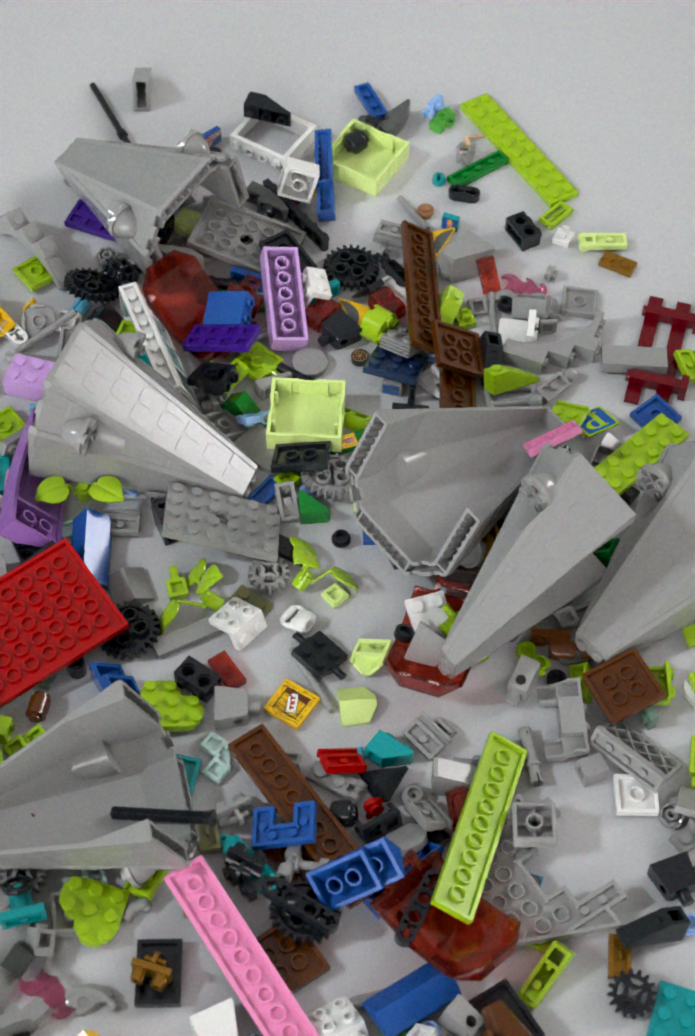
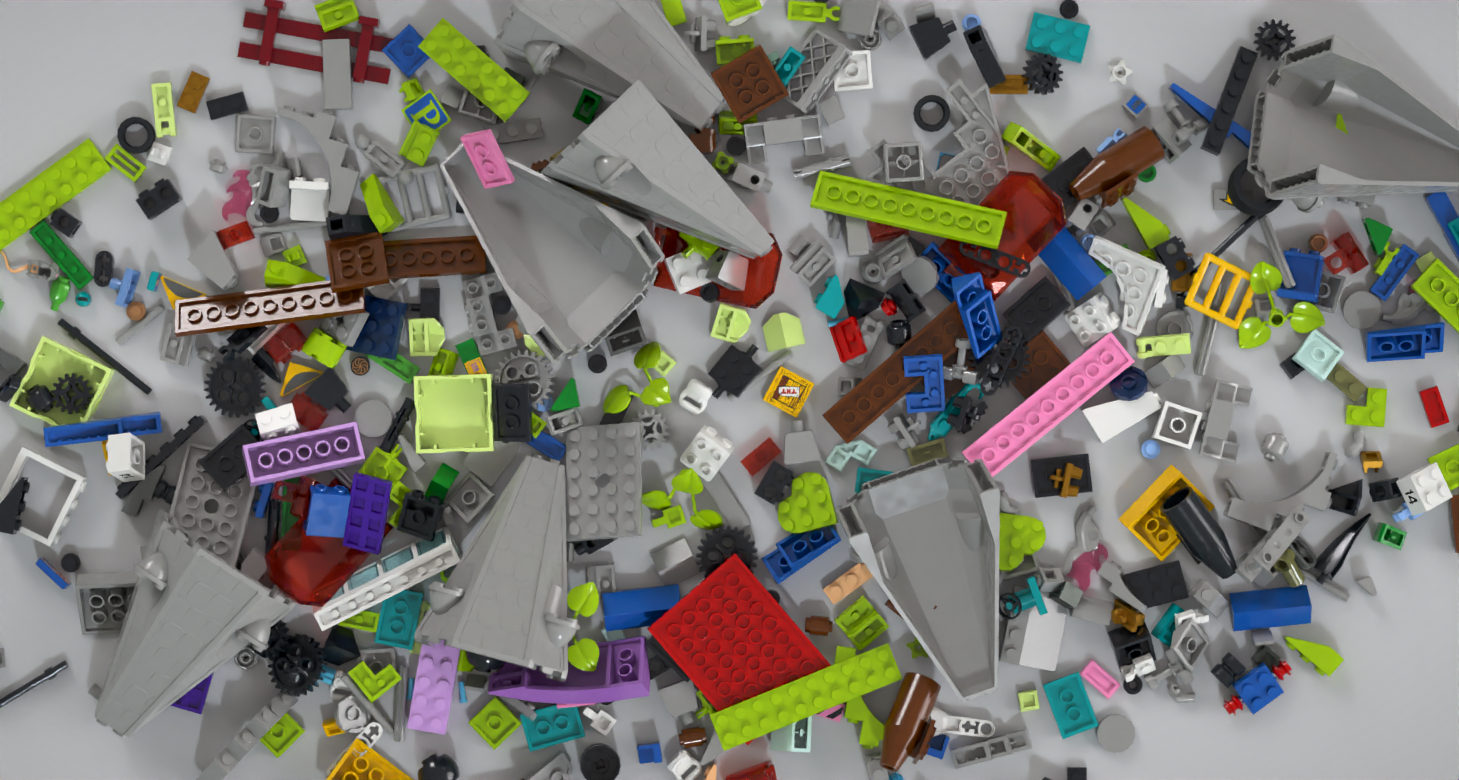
camera: 90 degrees left, 35 degrees up
(62, 331) = (371, 684): none -> lime plate
(164, 815) = (929, 492): black axle -> none
(250, 419) = (462, 470): light blue plate -> none
(254, 599) = (679, 443): olive plate -> none
(355, 961) = (1037, 309): none -> black plate
(358, 383) = (400, 367): none -> bright green plate
(359, 160) = (71, 401): none -> black gear
(368, 560) = (626, 335): none -> dark grey slope
(381, 400) = (425, 336): none -> yellowish green slope
(409, 172) = (75, 333): none -> black bar
(446, 164) = (59, 292): none -> bright green plant
(446, 203) = (125, 287): none -> medium blue tile
(505, 171) = (72, 227): none -> black brick
(582, 213) = (133, 149): none -> black tyre
(593, 857) = (917, 109): none -> black tyre
(605, 285) = (227, 106): none -> black plate
(620, 412) = (412, 89): none -> lime tile
(641, 731) = (789, 64): none -> teal slope
(684, 657) = (698, 34): none -> light grey hips

